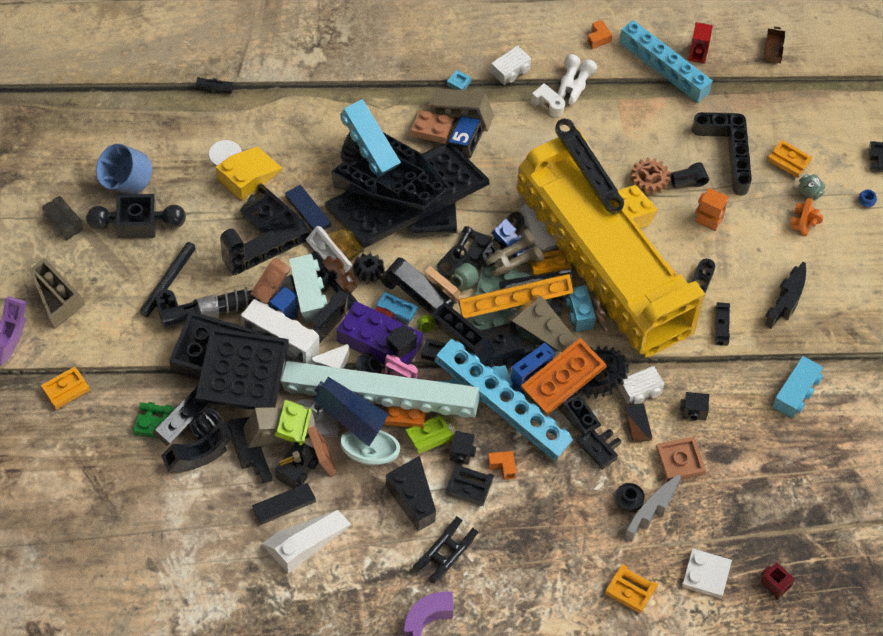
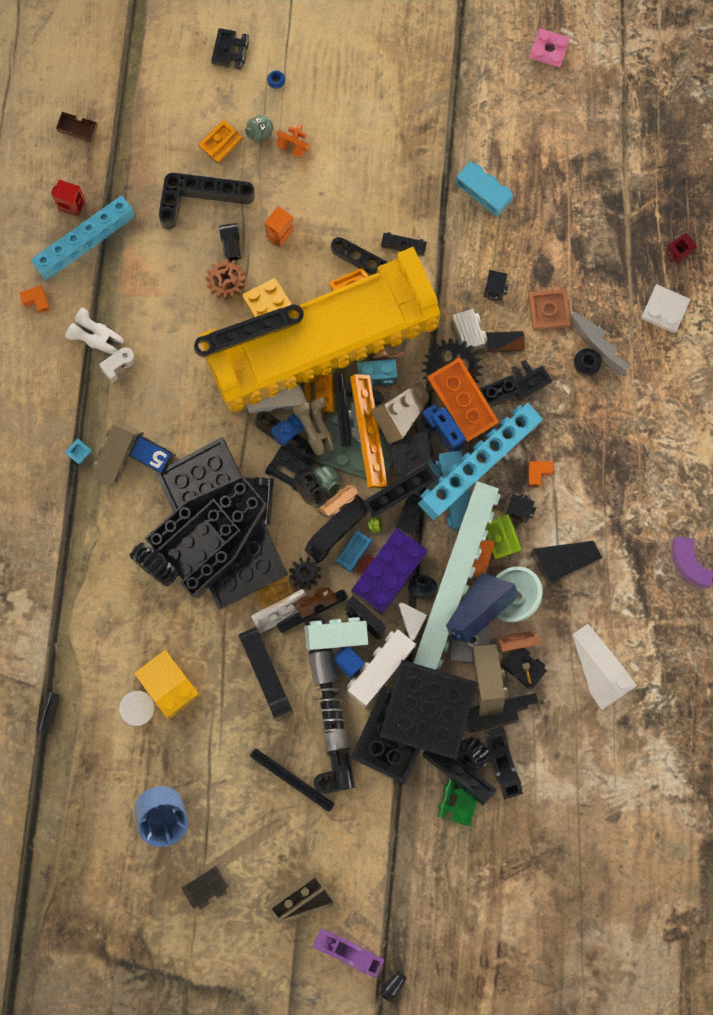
camera: 80 degrees left, 20 degrees up
(65, 388) = (413, 892): light orange plate -> none
(136, 216) = (215, 808): black brick -> none
(267, 211) = (225, 669): black wing -> none
(270, 280) = (331, 670): nougat piece -> none
(284, 503) = (561, 684): black tile -> none
(293, 422) = (495, 664): lime plate -> none
(307, 208) = (221, 627): dark blue tile -> none
(369, 138) = (166, 550): medium azure brick -> none
(395, 367) = (440, 552): bright pink piece -> none
(401, 341) = (412, 548): black brick -> none
(432, 126) = (135, 487): nougat plate -> none
(445, 539) = (625, 550): black piece -> none
(468, 489) = (563, 510): black plate -> none
(510, 65) = (65, 395): white brick -> none
(628, 593) = (683, 379): light orange plate -> none
(789, 296) = (378, 171): black slope -> none

